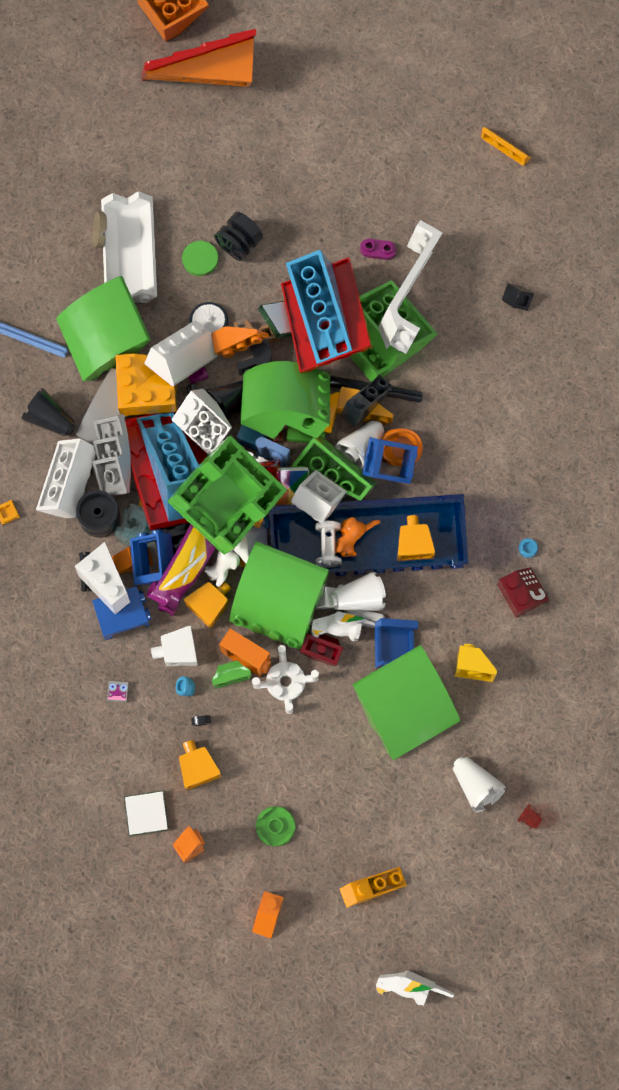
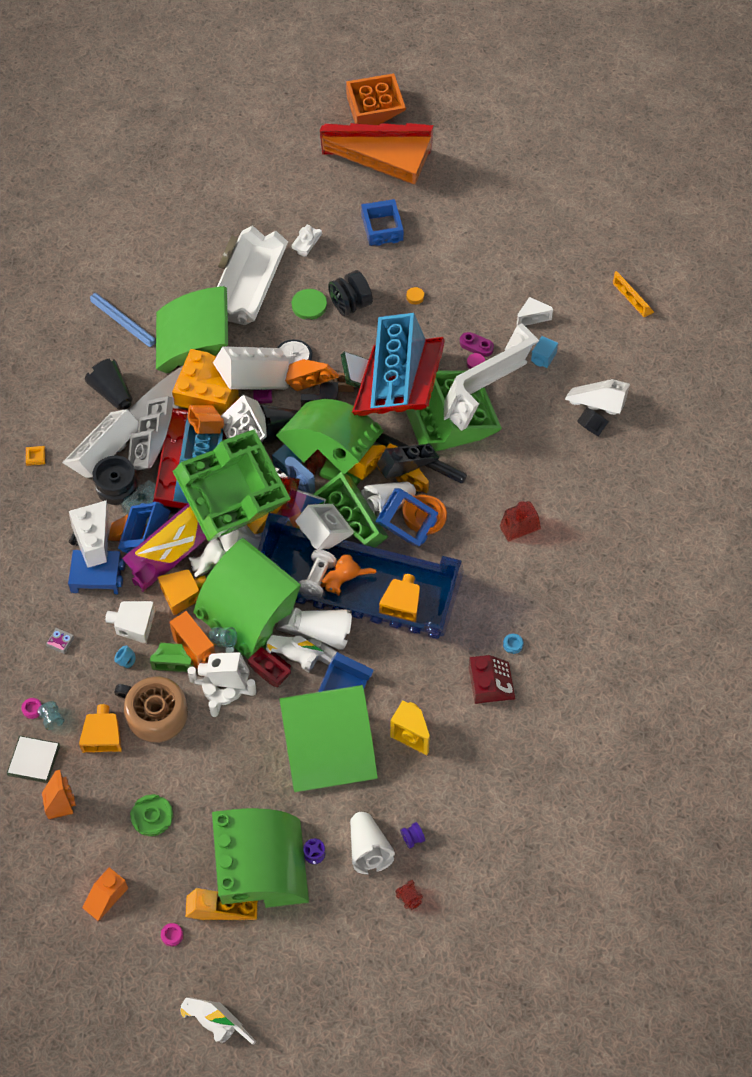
camera: 20 degrees right, 15 degrees down
(122, 765) = (30, 707): none -> dark pink tile
(143, 767) = (50, 714): none -> clear light blue wheel
(162, 426) = (205, 419): none -> orange brick
(169, 188) = (306, 240): none -> white hips
(227, 129) = (378, 210): none -> blue window
(238, 713) = (151, 696): none -> medium nougat wheel
(272, 639) = (223, 636): none -> clear light blue wheel
(294, 667) = (226, 670): none -> white torso
(298, 215) = (415, 295): none -> light orange tile
(340, 926) = (171, 934): none -> dark pink tile
(384, 269) = (474, 360): none -> dark pink tile
(391, 833) = (259, 857): none -> bright green slope
(420, 197) = (534, 312): none -> white slope
(432, 803) = (312, 847): none -> dark purple wheel
(447, 240) = (544, 352): none -> dark azure brick
(492, 423) = (520, 521): none -> clear red torso
(511, 761) = (412, 835): none -> dark purple wheel
(517, 268) = (604, 395): none -> white slope

